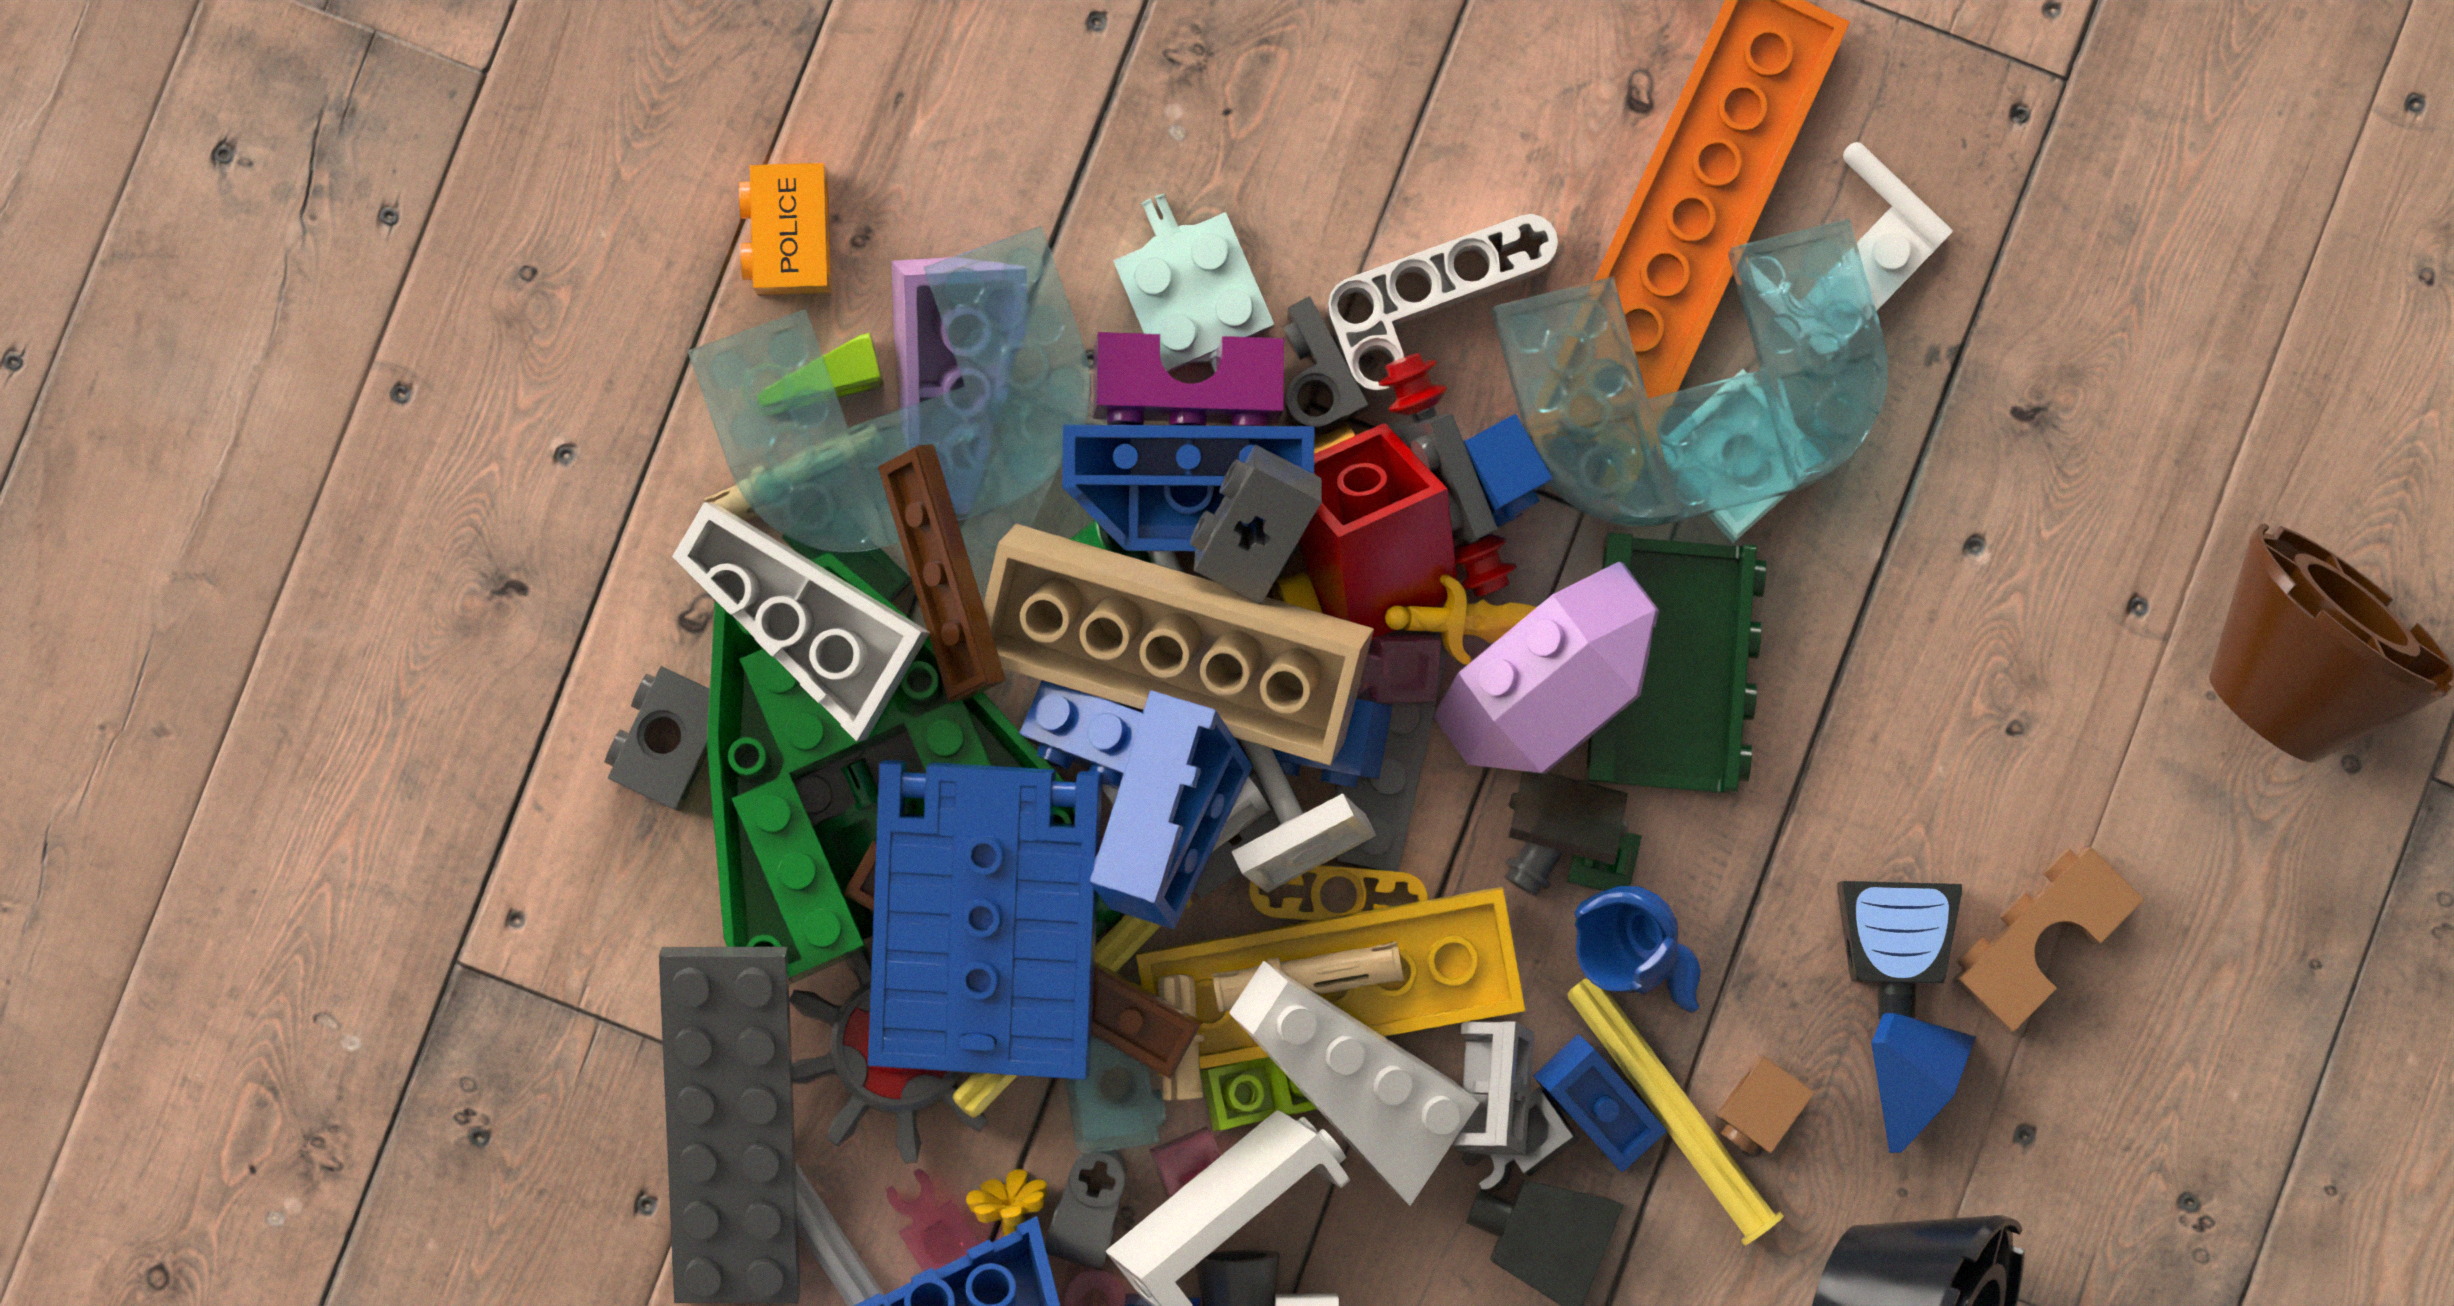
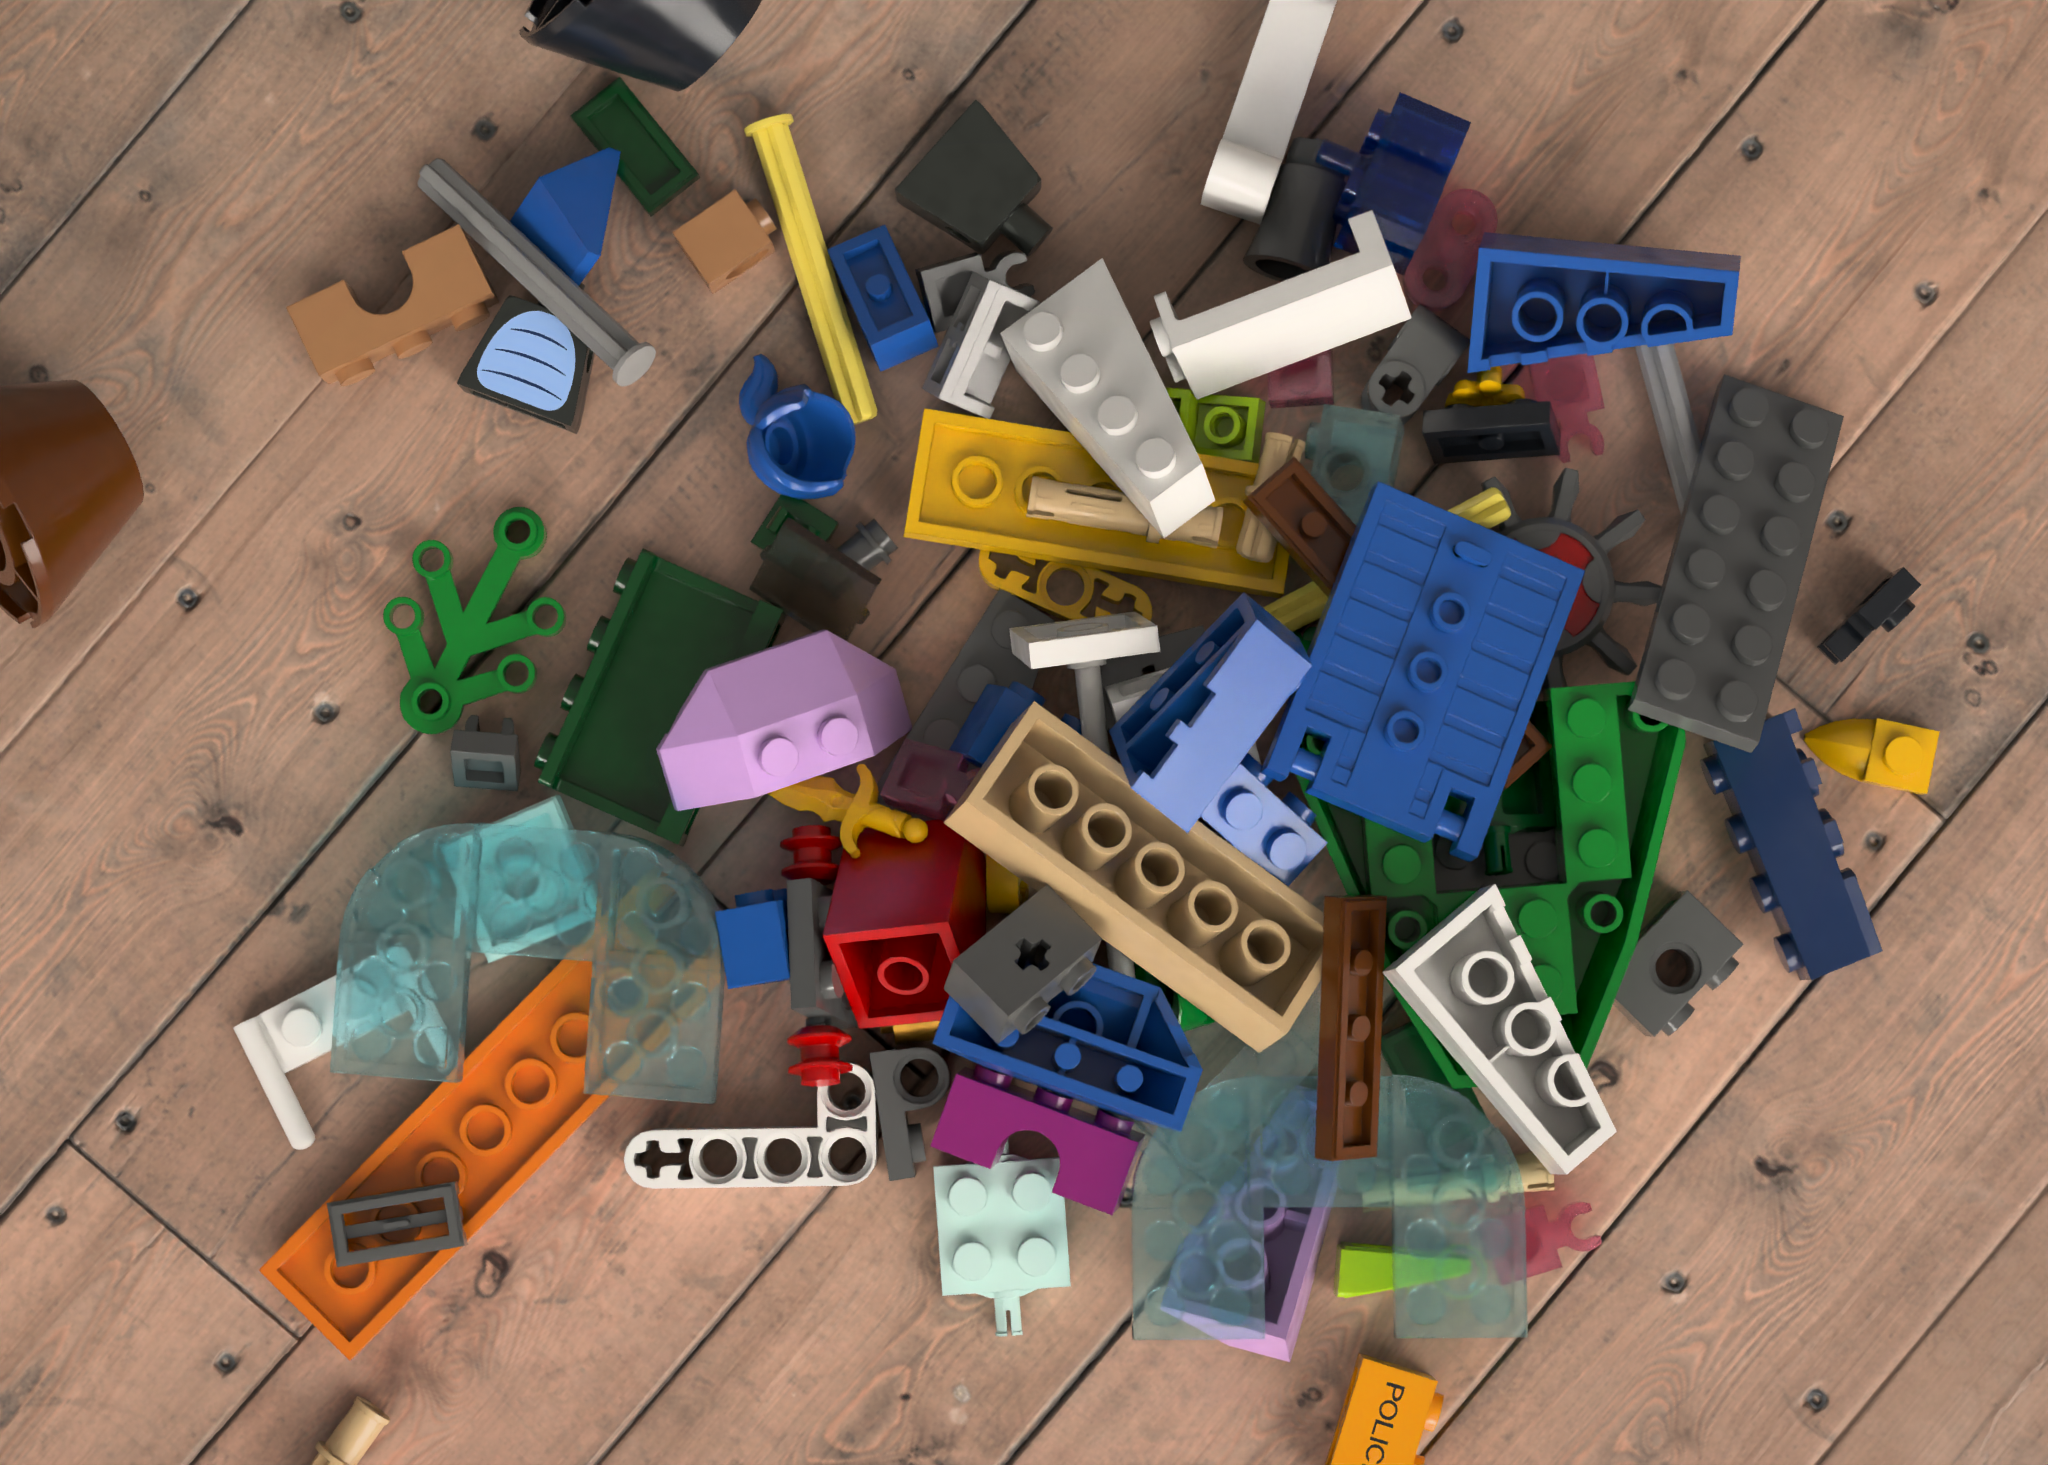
camera: 160 degrees left, 0 degrees up
(540, 1002) = (1877, 752): none -> yellow plate
(580, 1135) = (1883, 606): none -> black plate
(588, 879) = (1792, 850): none -> dark blue wedge
(700, 451) = (1547, 1236): none -> clear pink plate
(1010, 1165) = (1491, 432): none -> black plate
(1694, 130) = (451, 1214): none -> dark grey tile
(1812, 552) = (486, 758): none -> dark grey tile
(1862, 1159) = (648, 158): none -> dark green tile
(1870, 664) = (468, 629): none -> green plant
(1927, 1012) = (537, 272): none -> light grey axle

